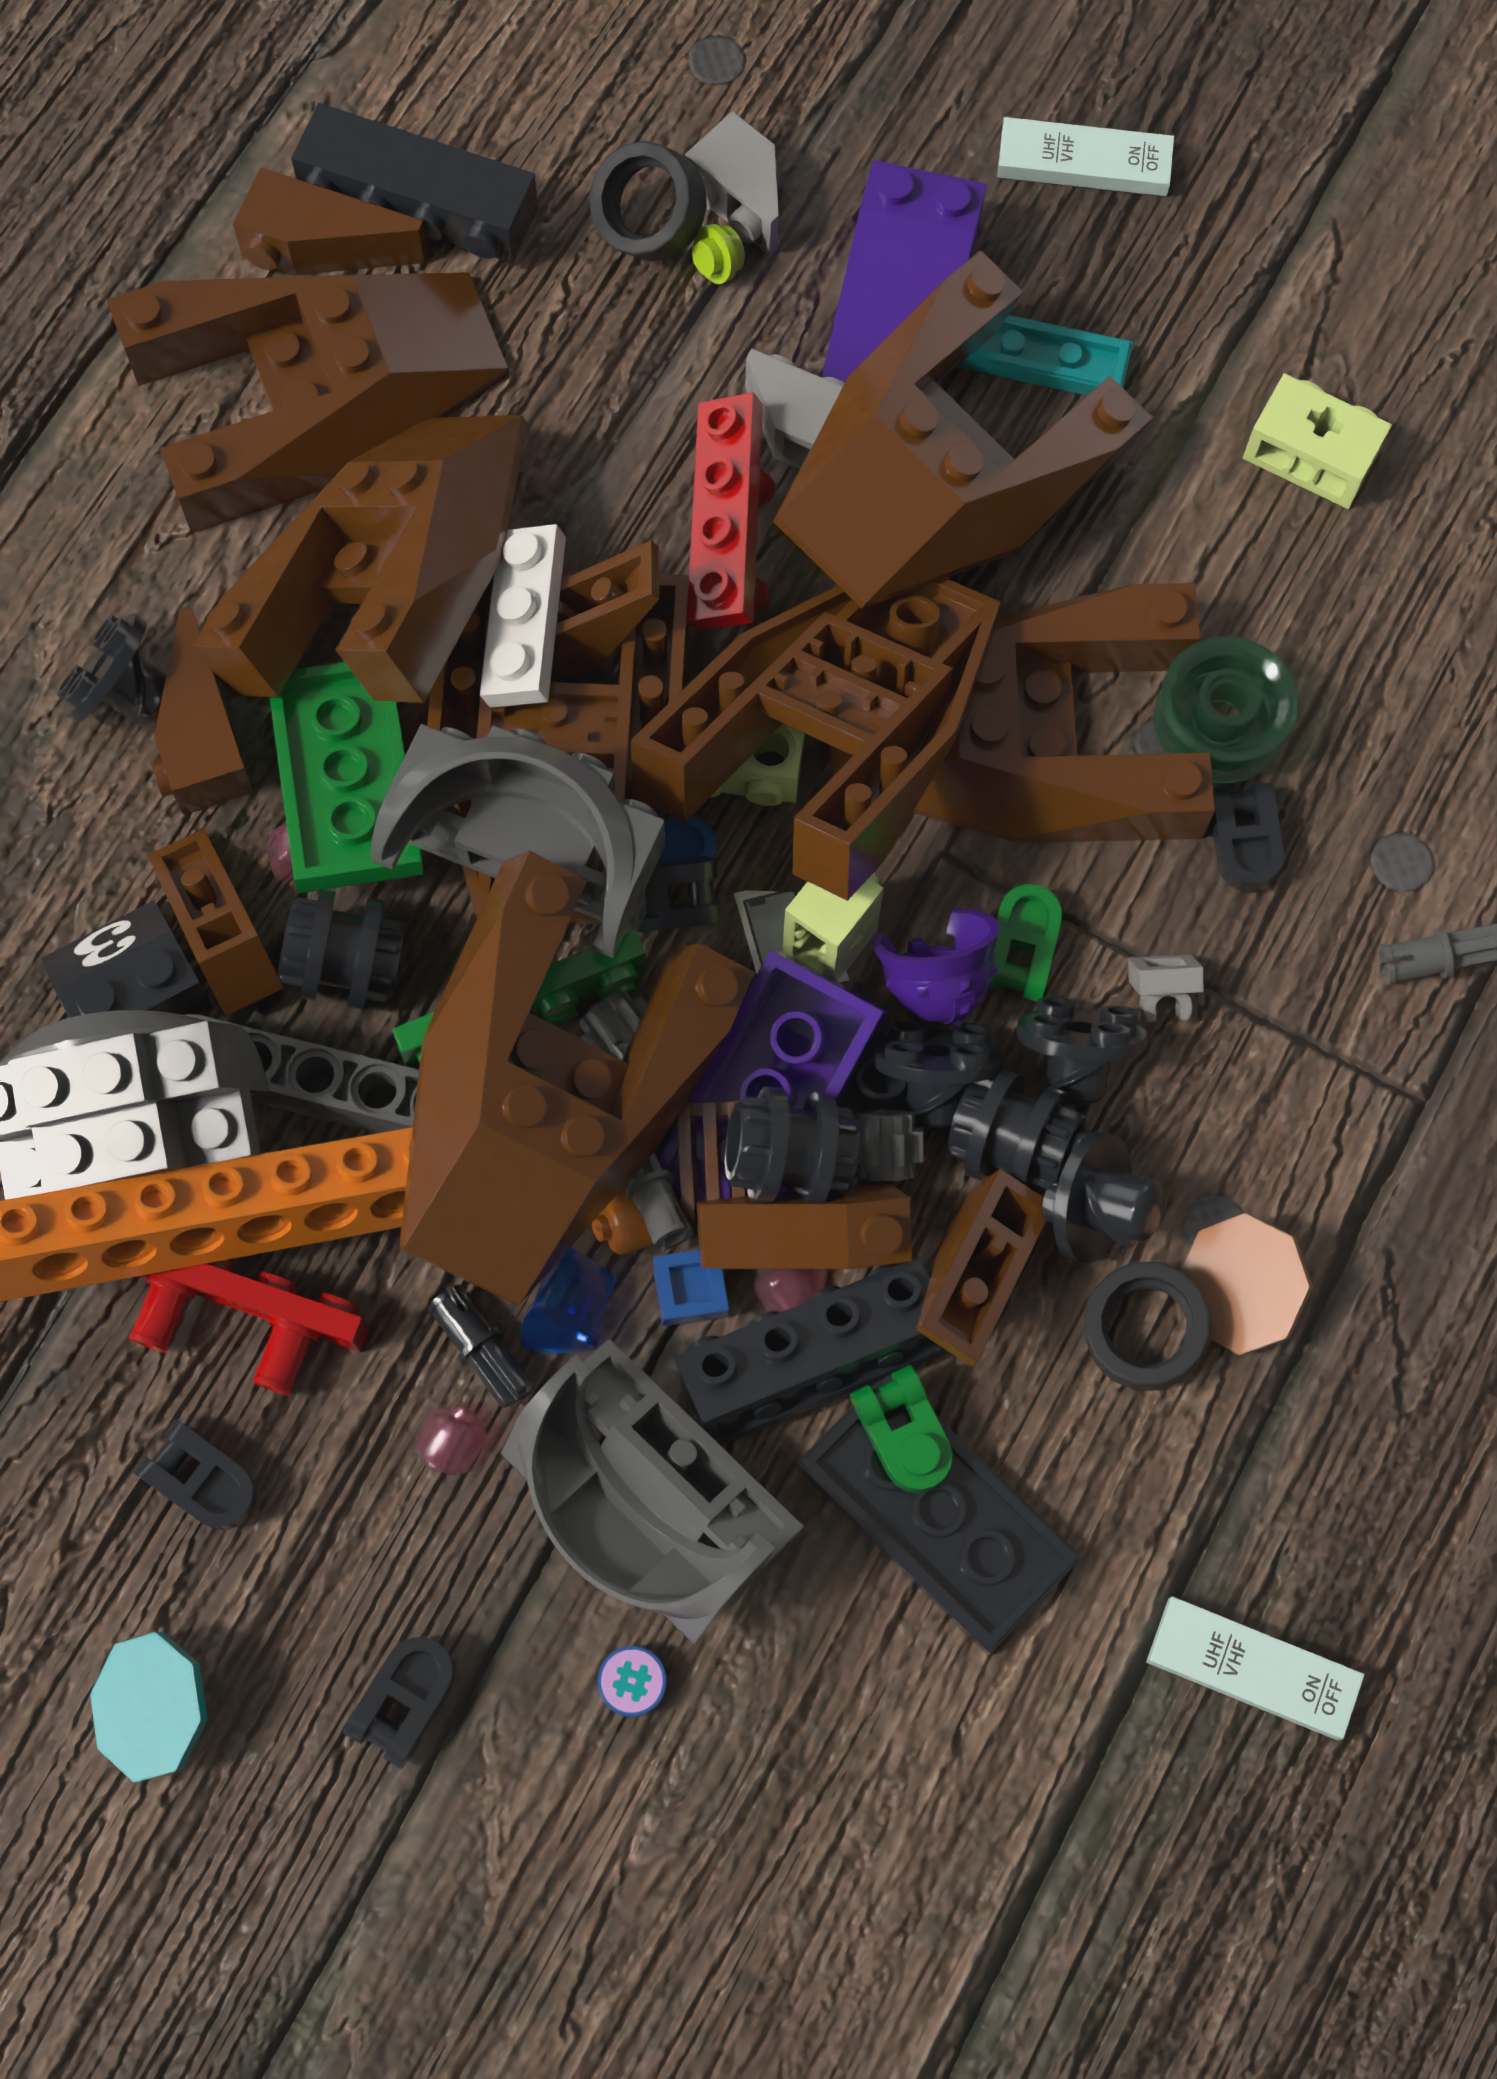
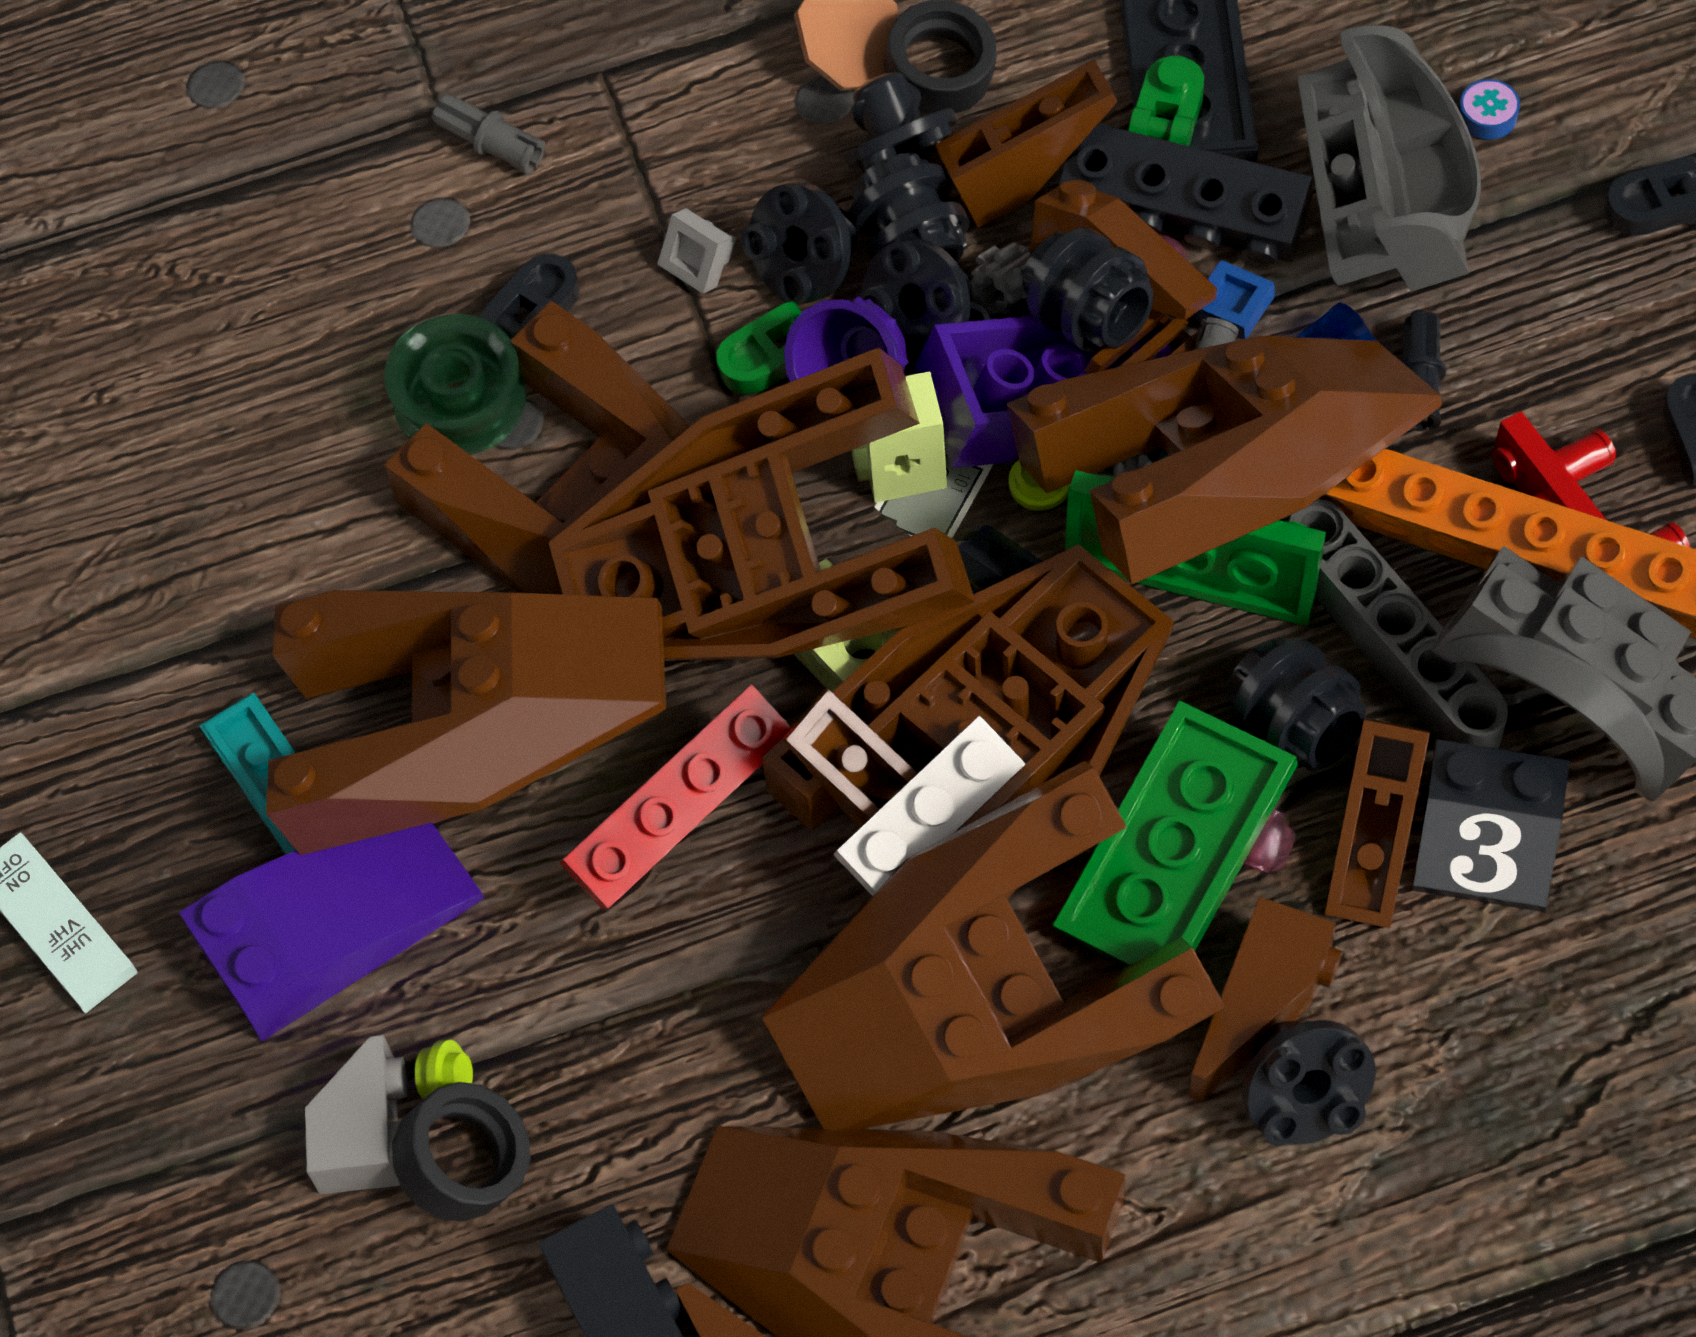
camera: 130 degrees left, 10 degrees down
(451, 1440) = (1492, 339): clear pink piece -> none
(523, 802) = (1077, 602): dark grey piece -> none
(792, 404) = (521, 858): light grey slope -> none
(1316, 440) = (158, 531): yellowish green brick -> none

